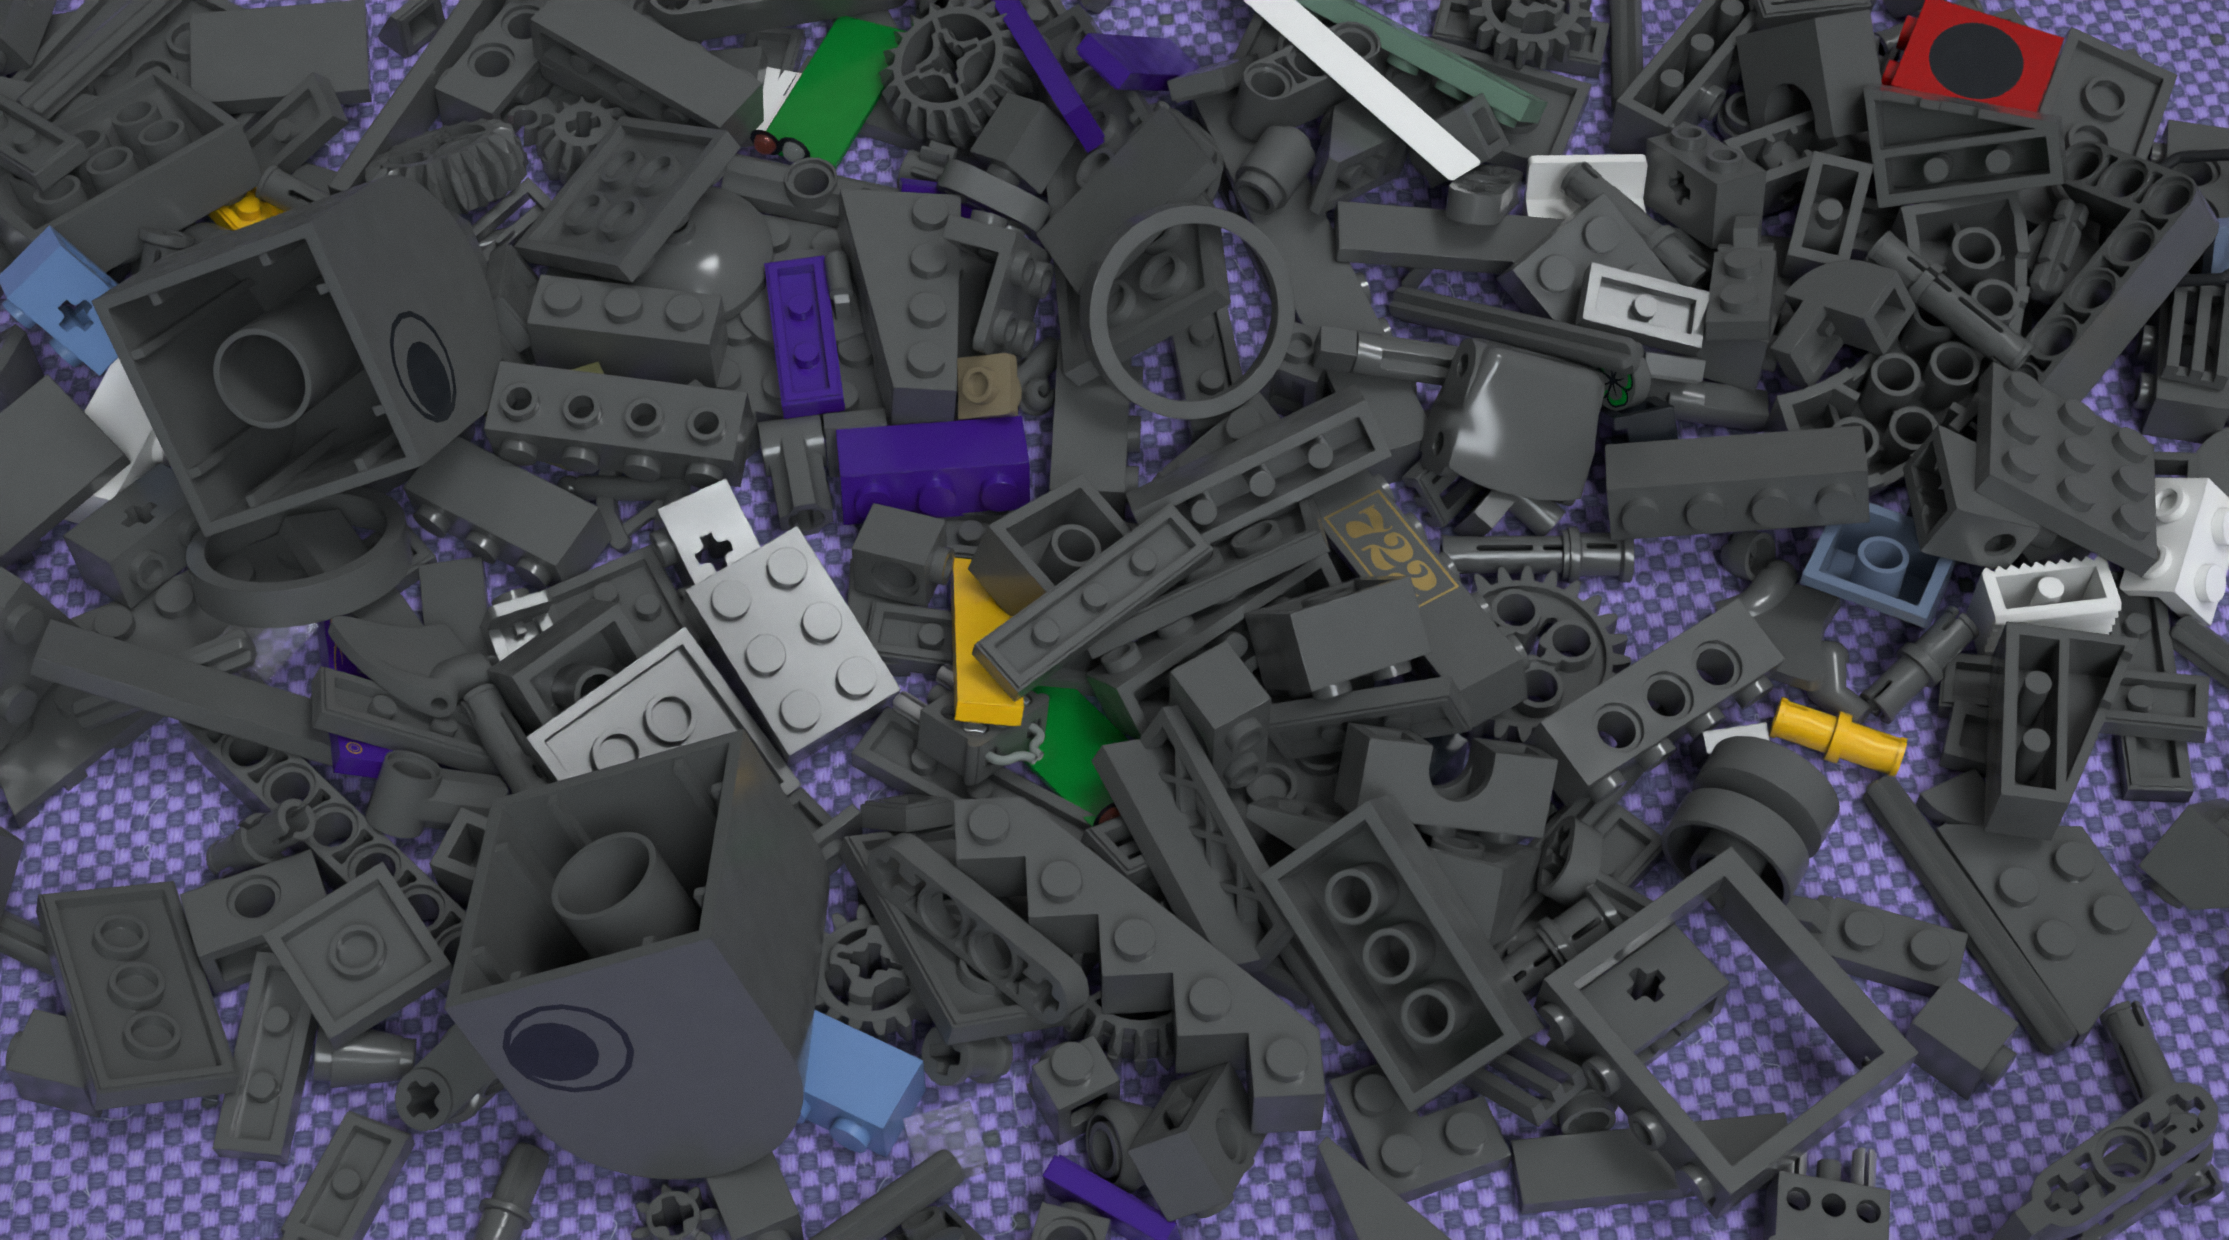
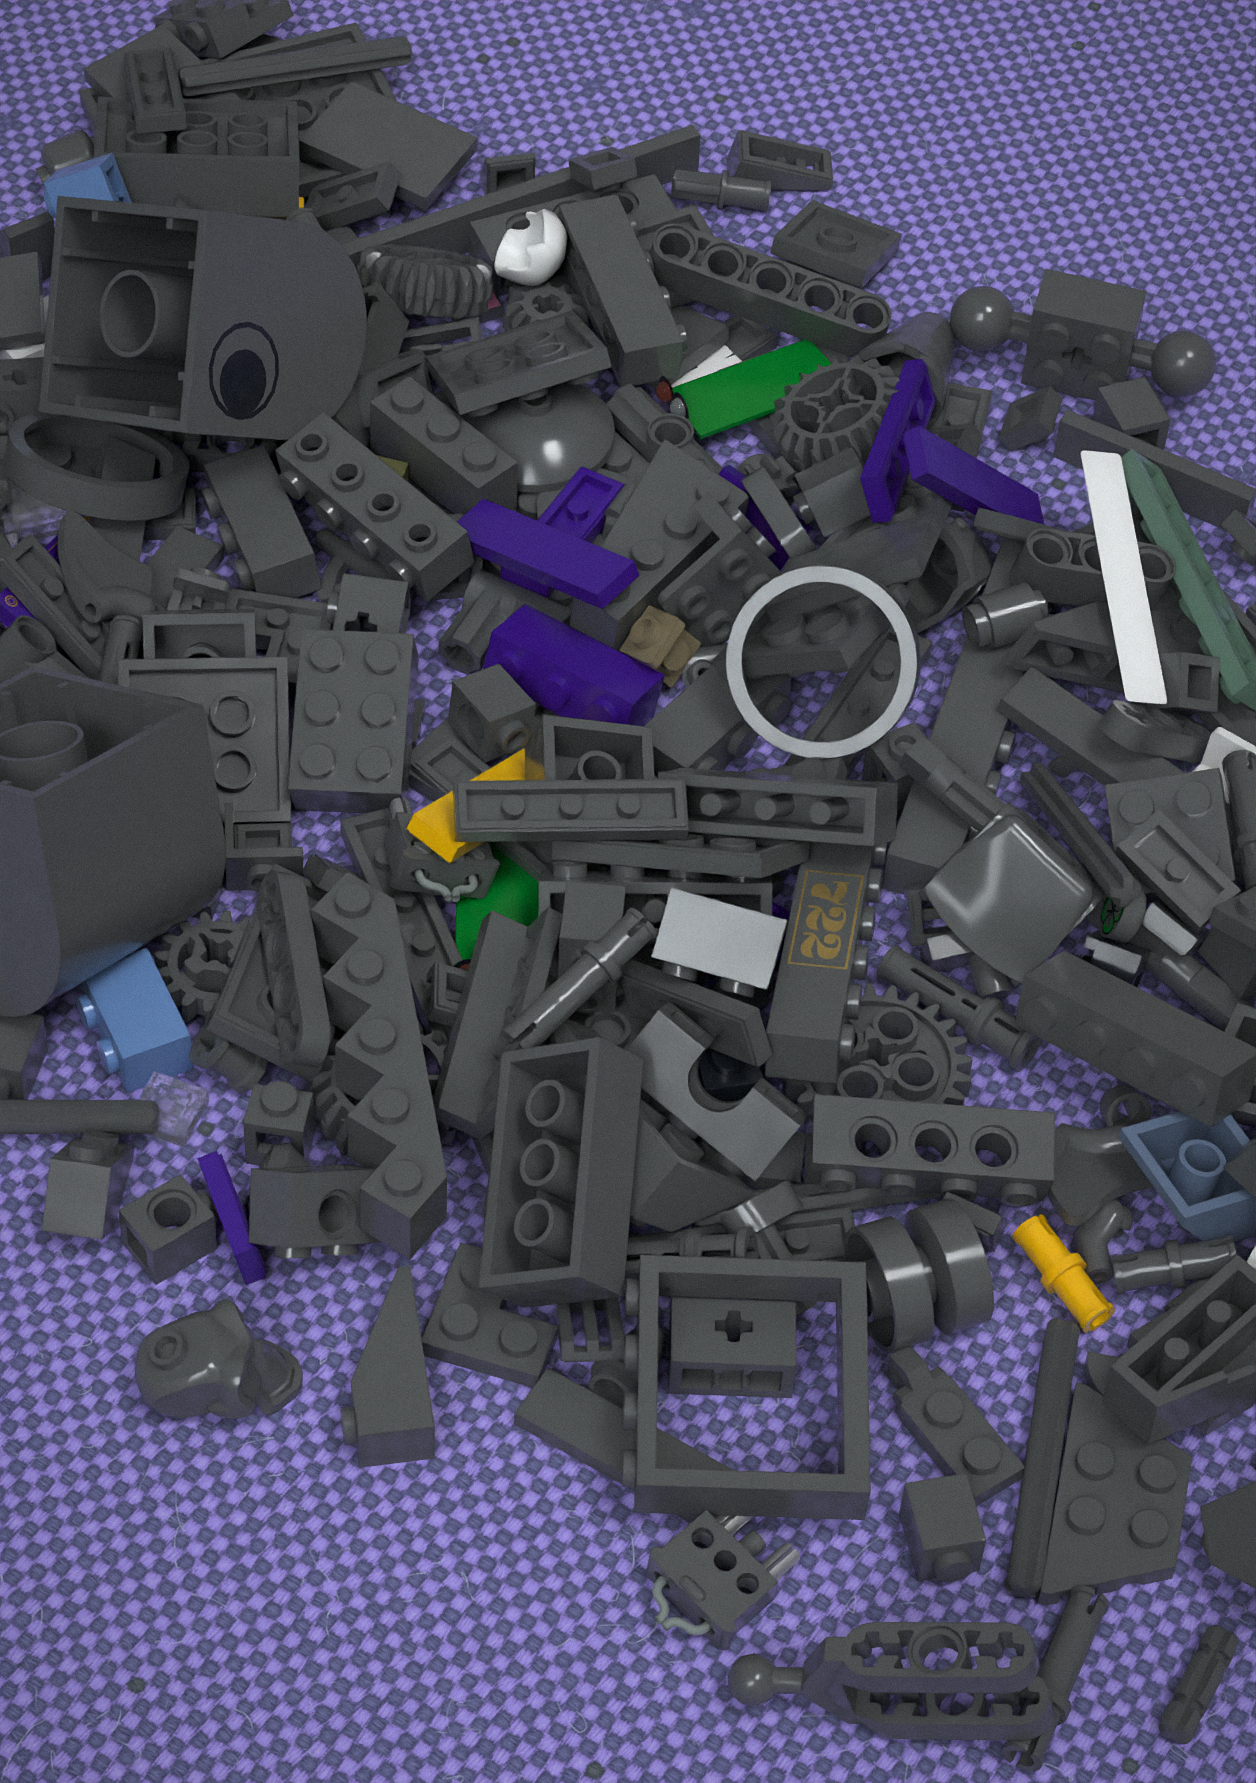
camera: 35 degrees right, 5 degrees down
(532, 79) = (532, 253): none -> white hair
(836, 367) = (547, 554): none -> dark purple tile
(1275, 734) = (579, 982): none -> dark grey pin

